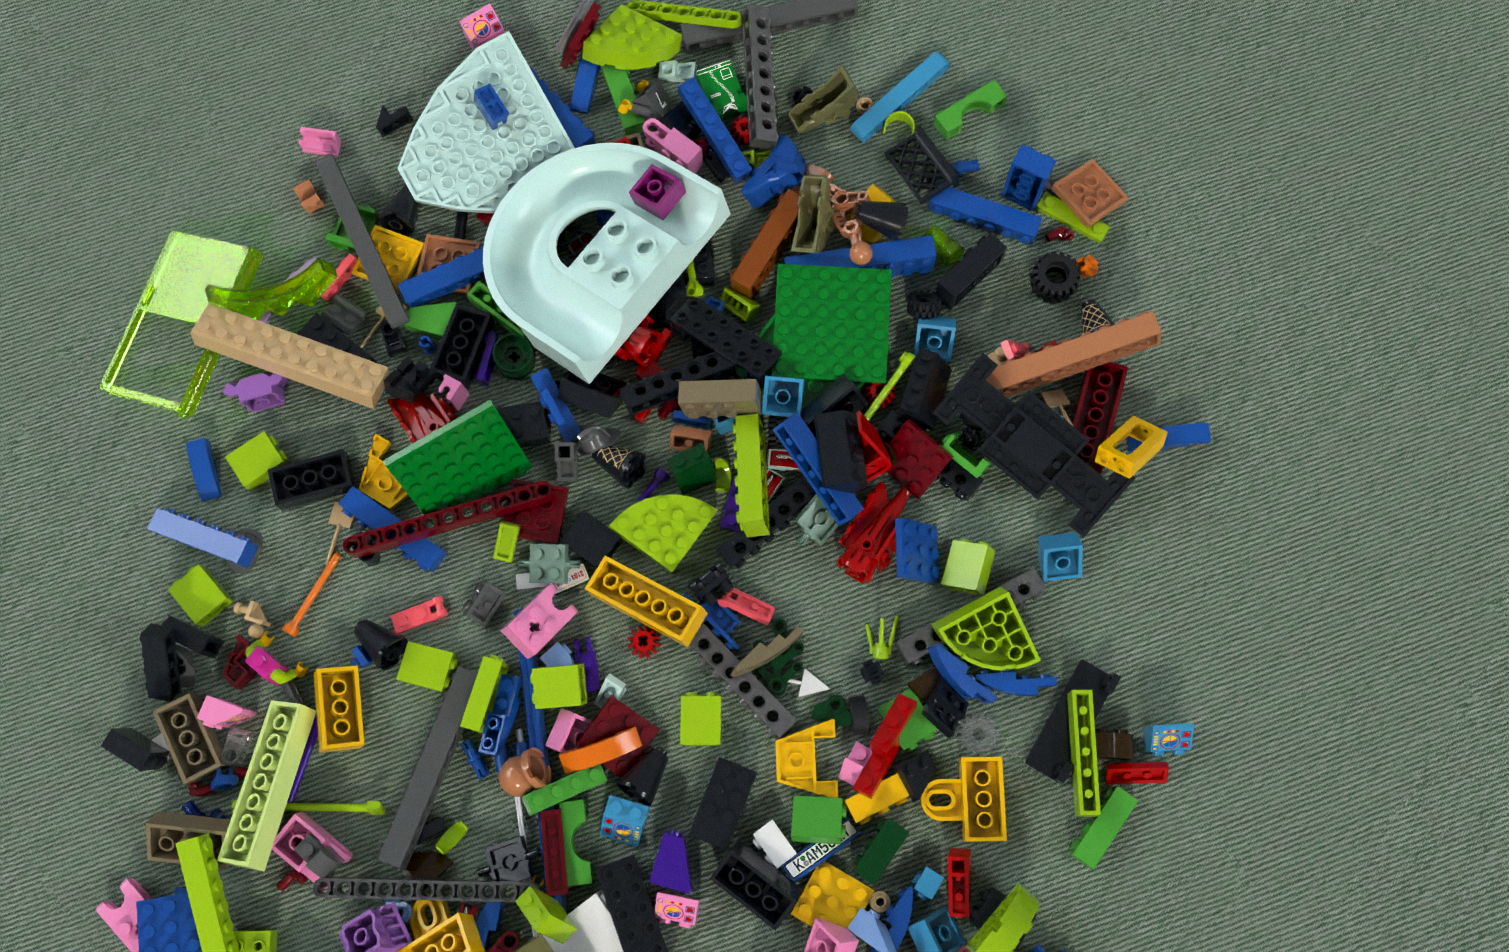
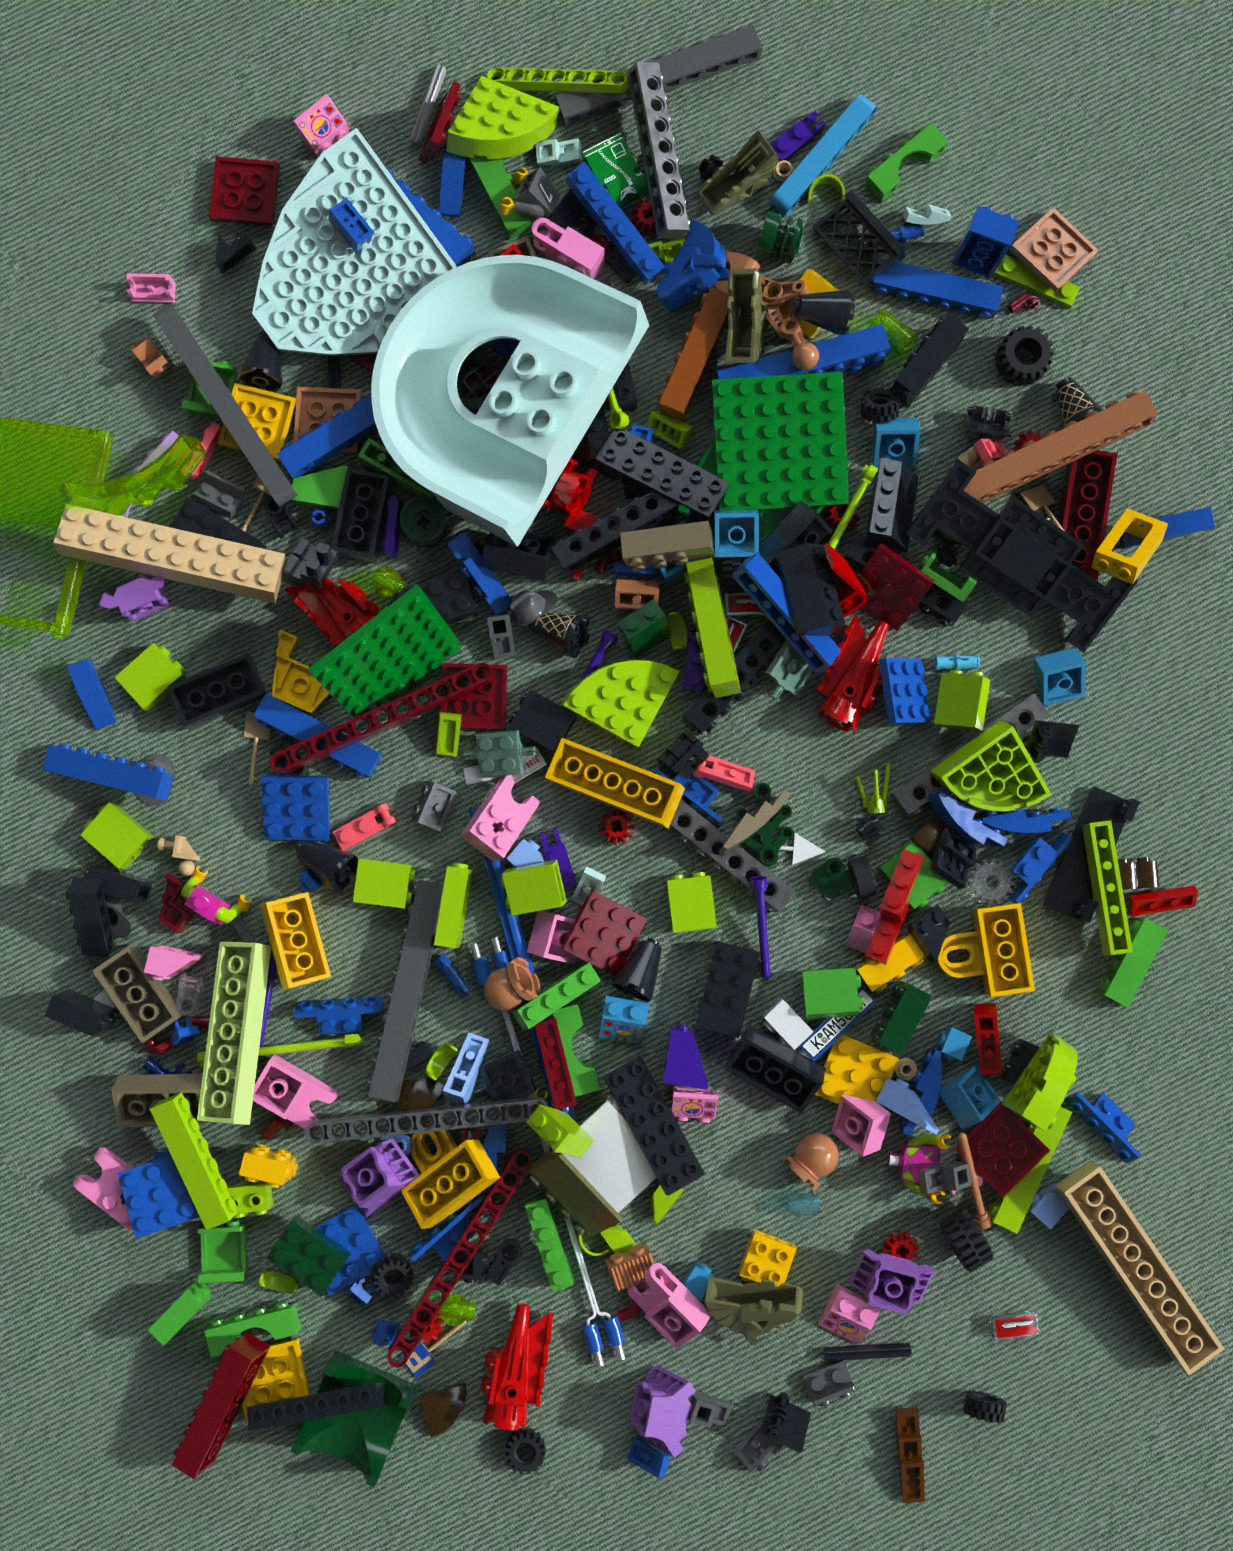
camera: 10 degrees left, 10 degrees up
(275, 914) = (268, 1165): none -> yellow brick
(292, 626) = (226, 857): orange piece -> none
(318, 858) = (306, 1103): dark grey brick -> none
(361, 589) = (296, 807): none -> blue plate
(367, 783) = (340, 1014): none -> blue bracket
(411, 74) = (244, 191): none -> dark red plate
(457, 393) = (363, 573): bright pink hinge -> none
(472, 849) = (465, 1070): none -> light blue slope
(473, 400) = (388, 581): none -> clear neon green piece
(501, 720) = (476, 926): blue slope -> none
(600, 751) = (590, 952): orange slope -> none
(657, 192) = (564, 311): magenta brick -> none
(763, 710) = (759, 886): none -> dark purple piece
(797, 760) = (800, 931): yellow wing -> none
(853, 157) = (779, 238): none -> dark green wheel
(879, 80) = (796, 137): none -> dark purple hinge
(968, 533) = (956, 662): none -> medium azure pin
(988, 154) = (933, 215): none -> light aqua slope
(1007, 330) = (978, 425): none -> black hinge
(1019, 722) = (1035, 862): none -> blue bracket
(1046, 611) = (1051, 739): none -> black hinge
(1088, 266) = (1060, 338): orange gear -> none
(1168, 738) = (1194, 860): dark azure slope -> none

